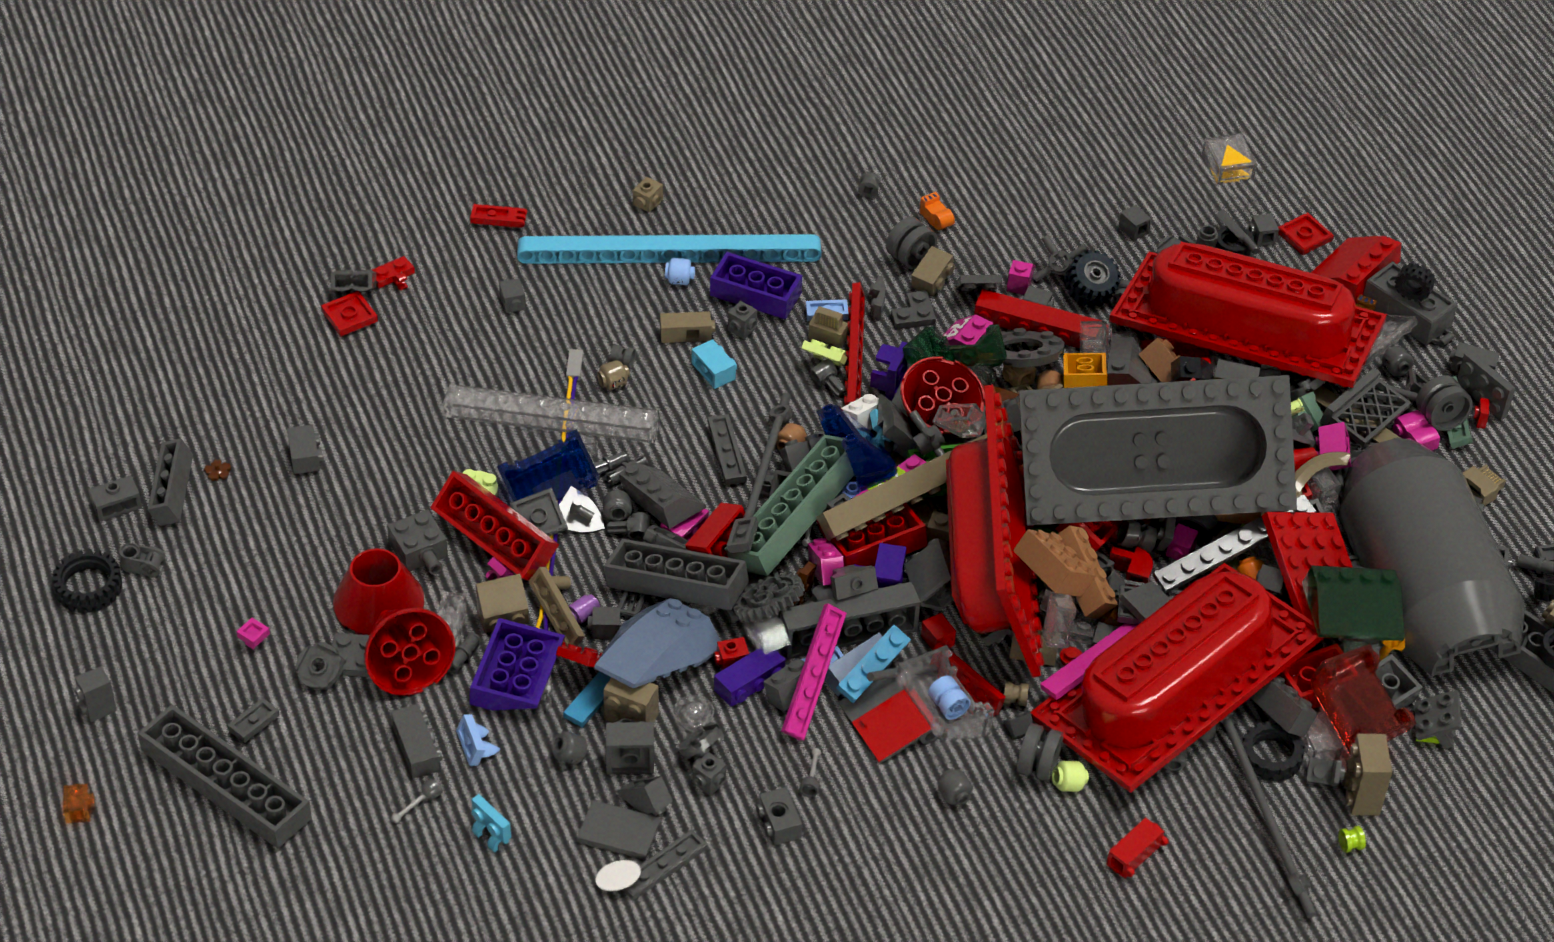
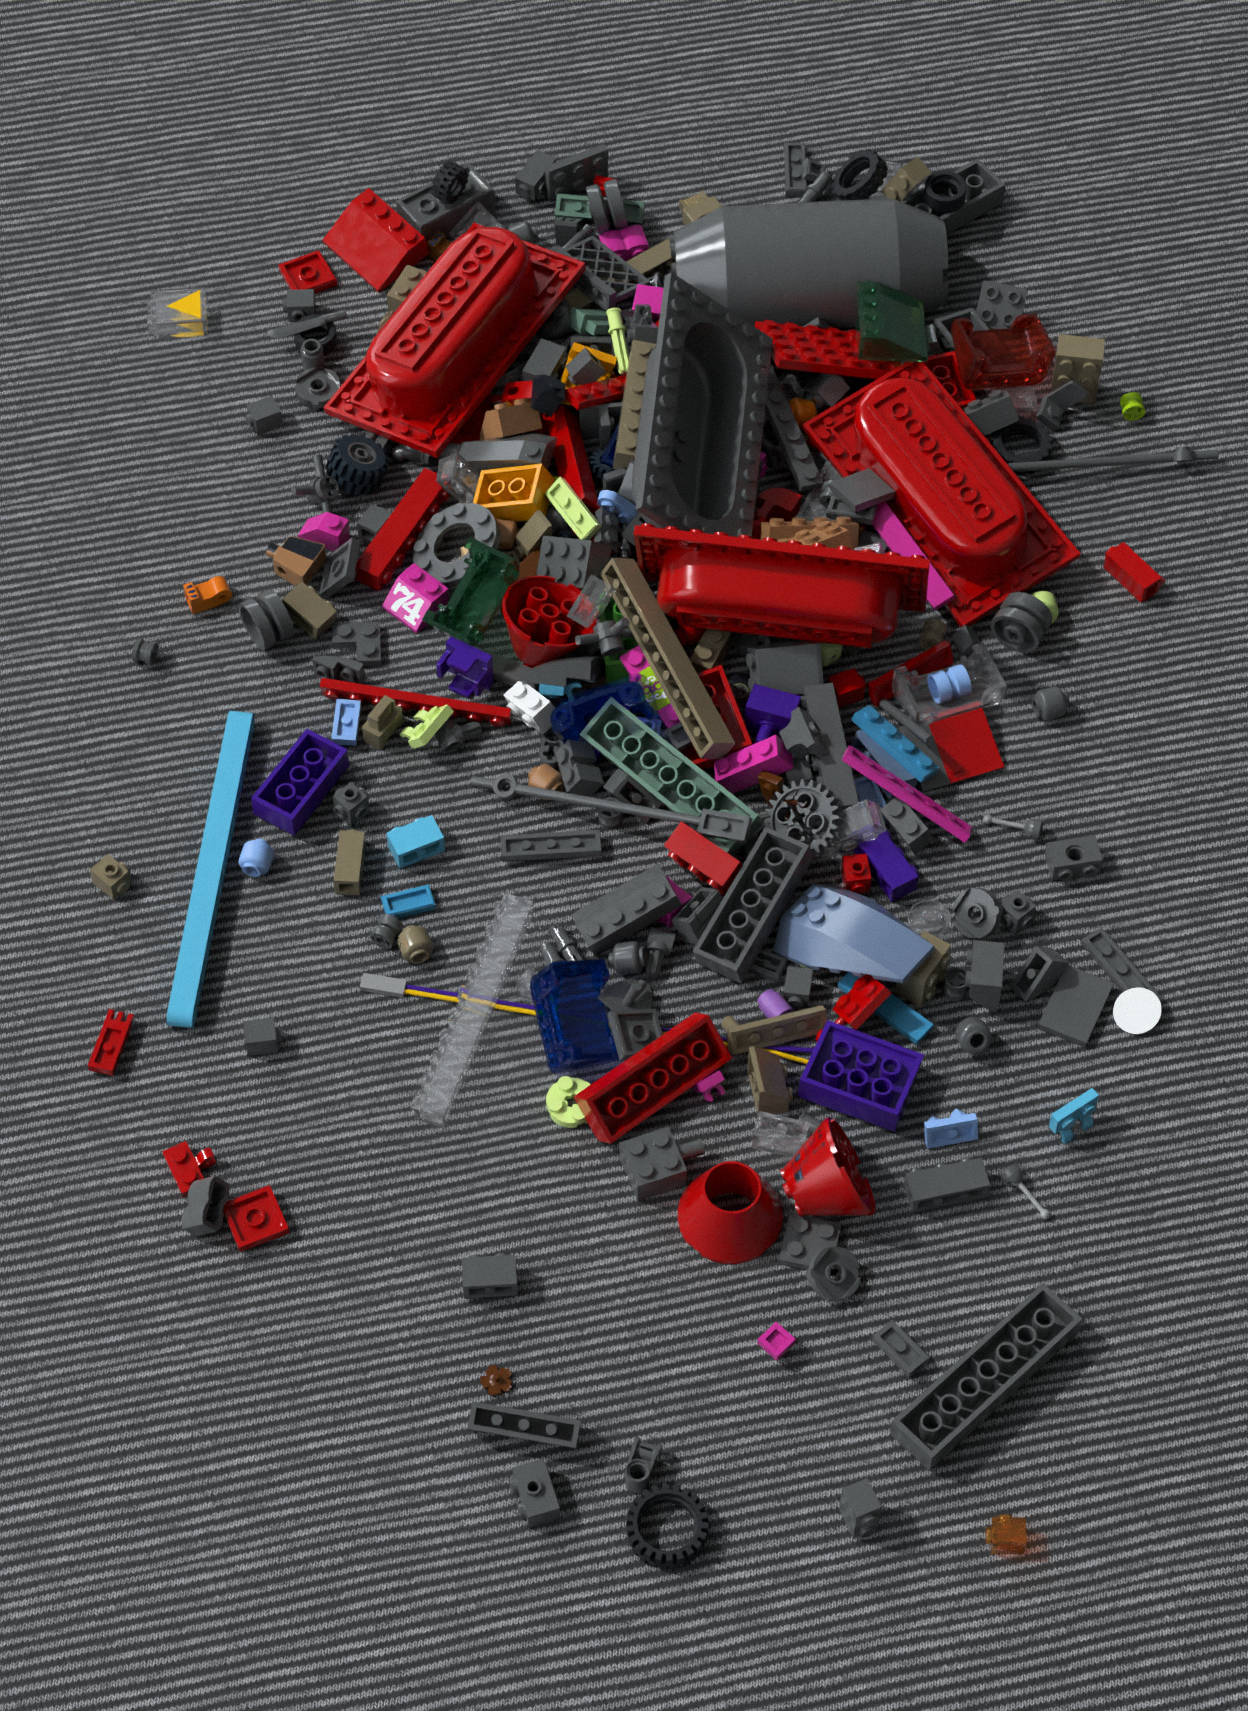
camera: 80 degrees left, 10 degrees up
(656, 370) = (409, 902): none -> dark azure tile
(983, 258) = (297, 559): none -> medium nougat torso

